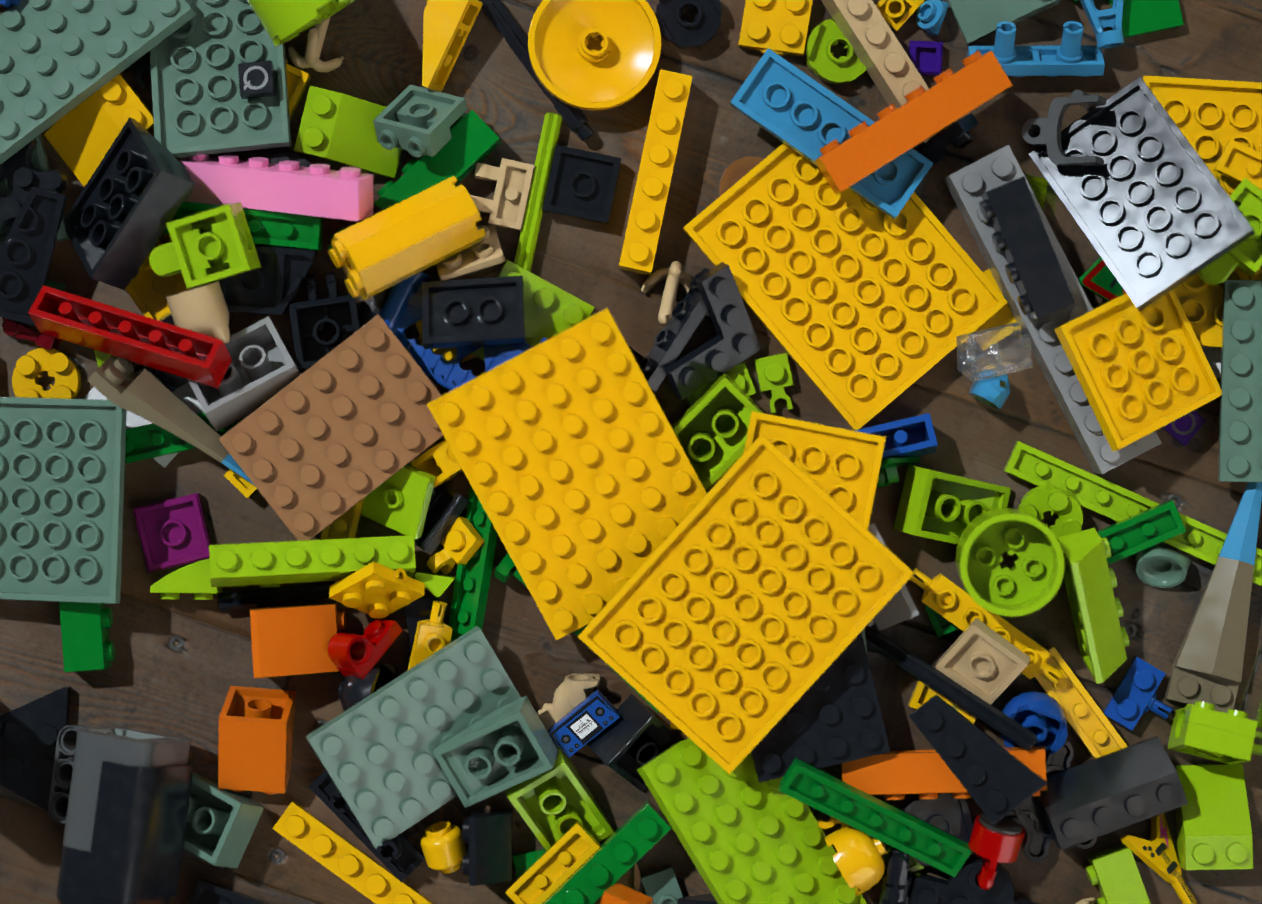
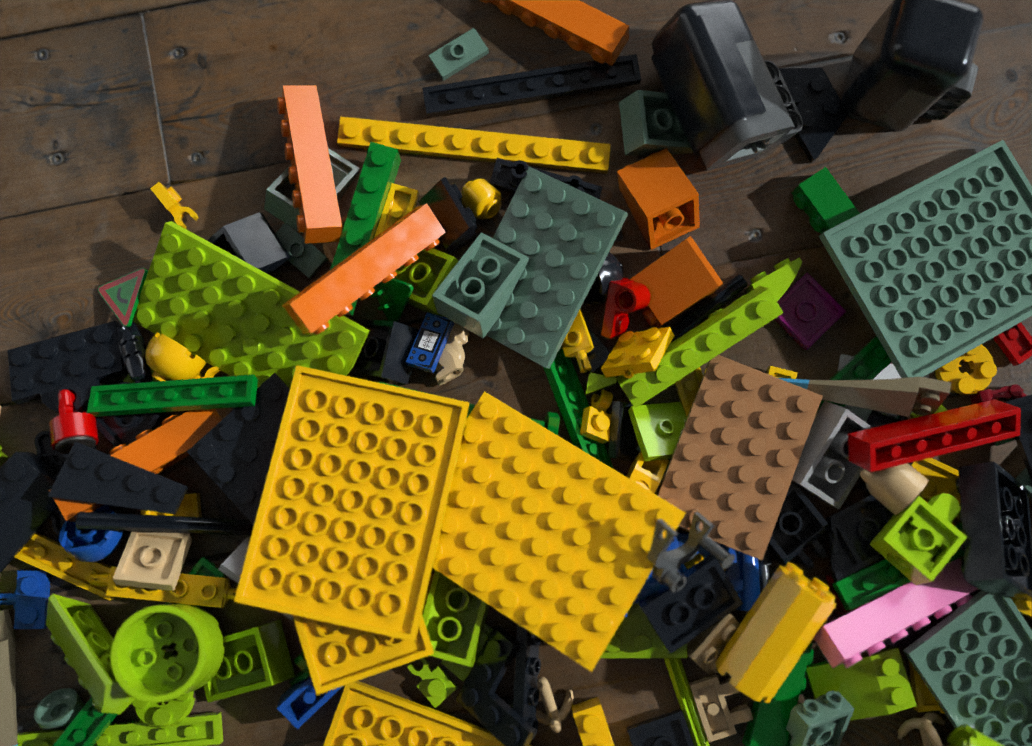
camera: 150 degrees right, 5 degrees down
(256, 79) = (961, 687): black tile -> none
(472, 365) = (669, 562): none -> dark grey piece
(595, 798) = (393, 297): none -> green piece
(605, 833) = (363, 270): none -> orange brick

